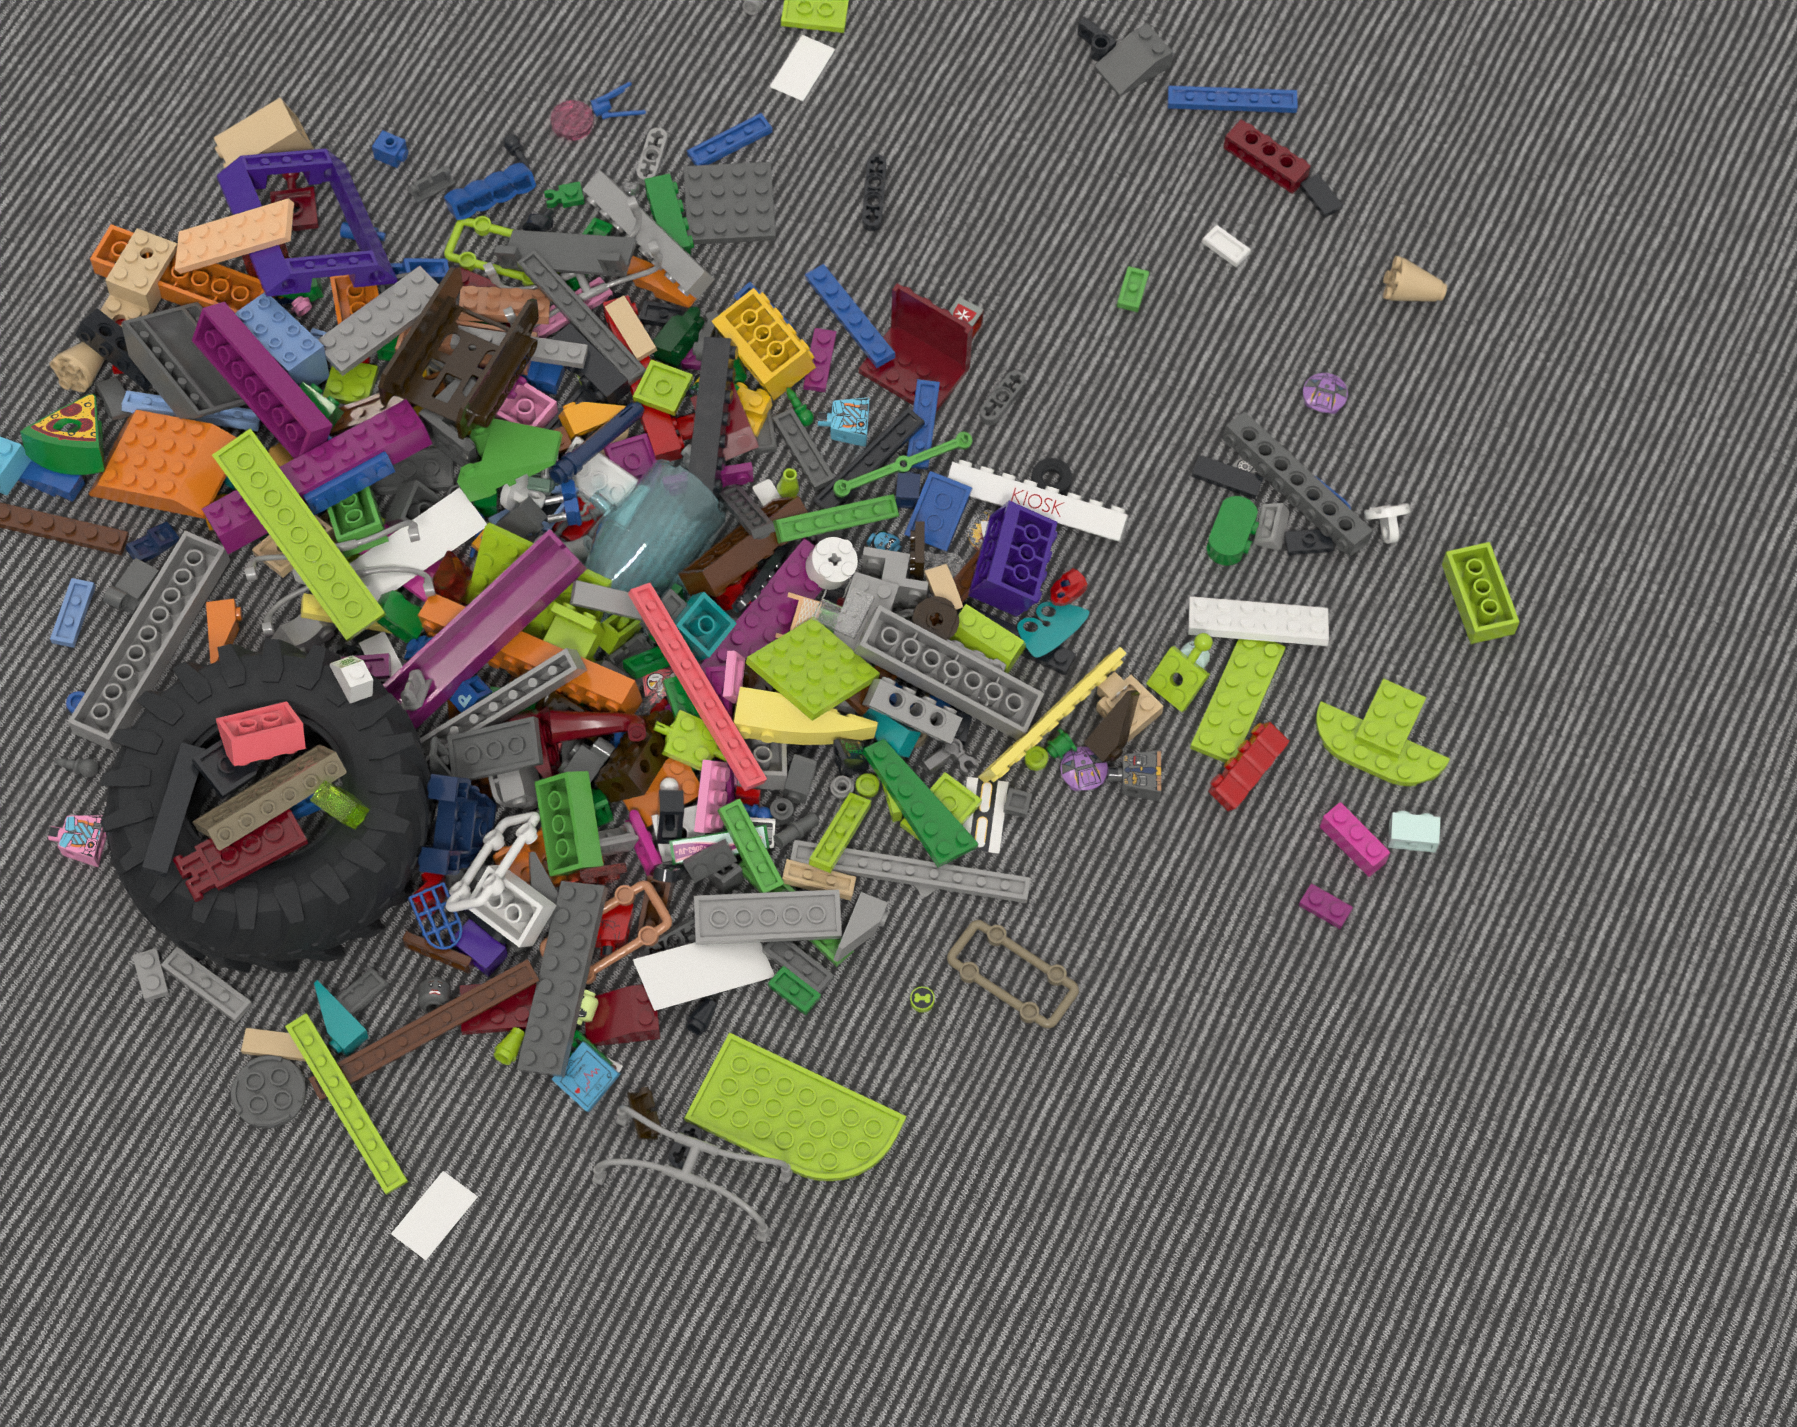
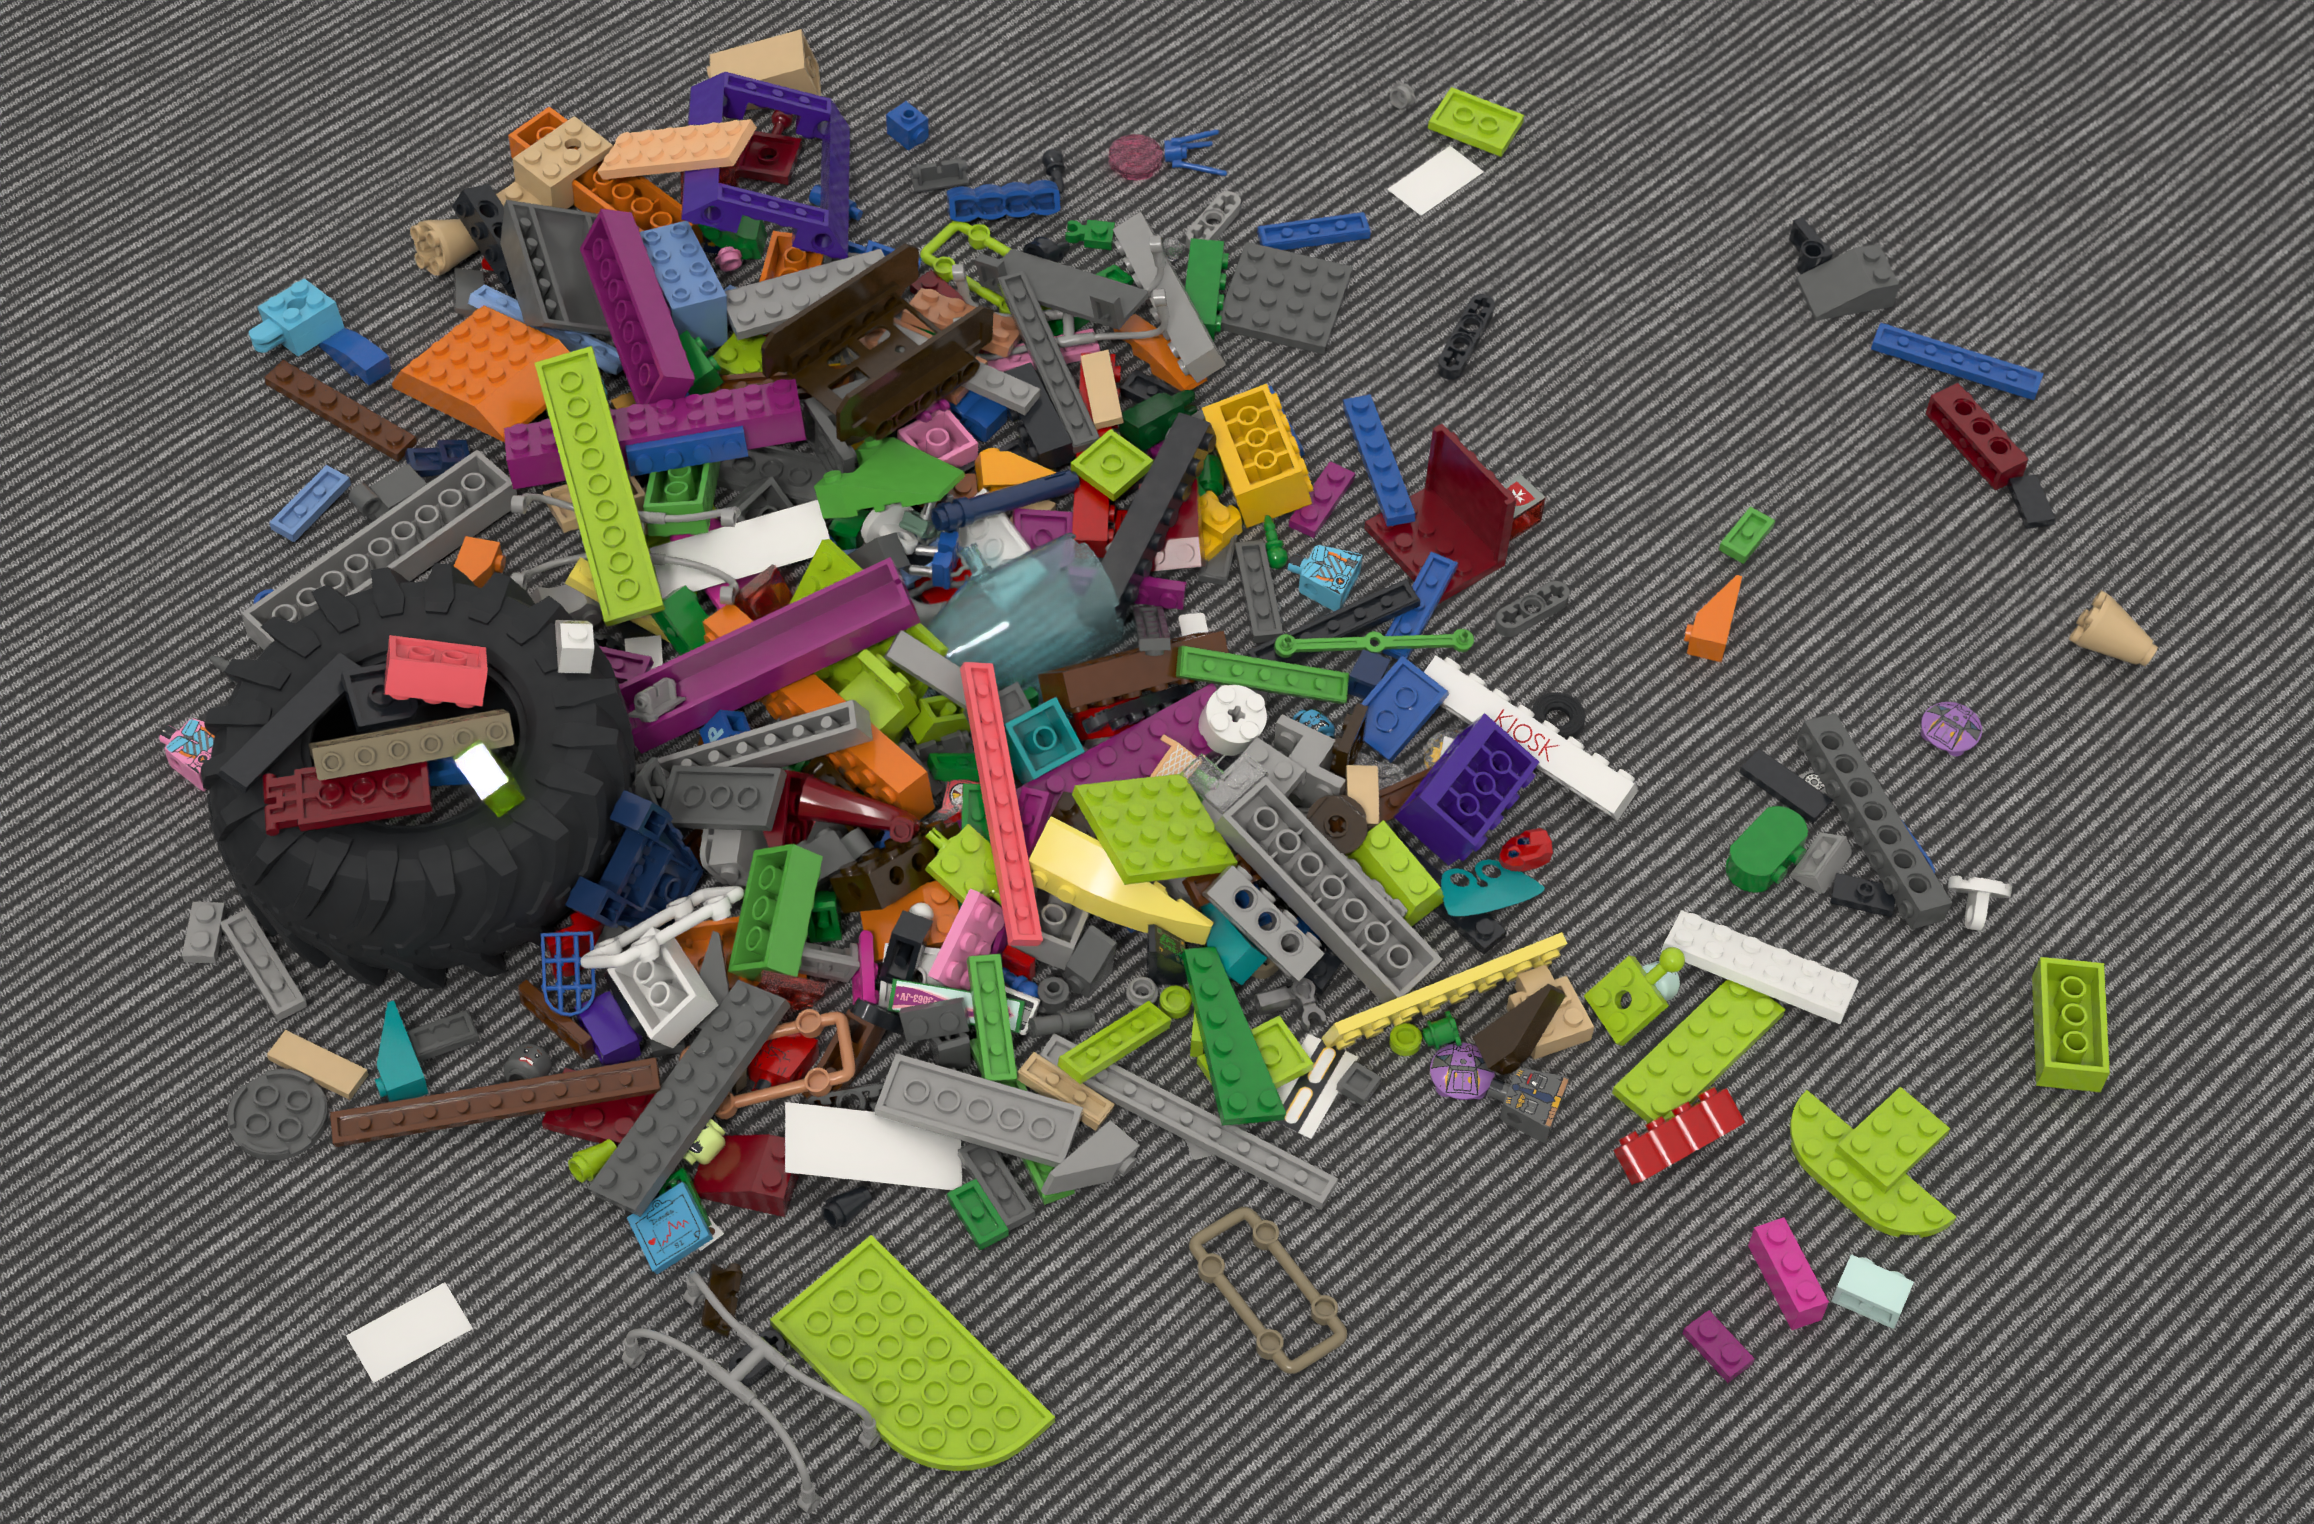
camera: 20 degrees right, 10 degrees down
(69, 452) = (388, 325): green piece -> none
(346, 1104) = (360, 1158): lime plate -> none
(733, 675) = (1053, 803): bright pink tile -> none
(788, 484) = (1223, 619): lime cone -> none
(922, 999) = (1137, 1281): tile -> none
(1135, 374) = (1712, 624): none -> orange slope
(1226, 246) = (1886, 523): white tile -> none

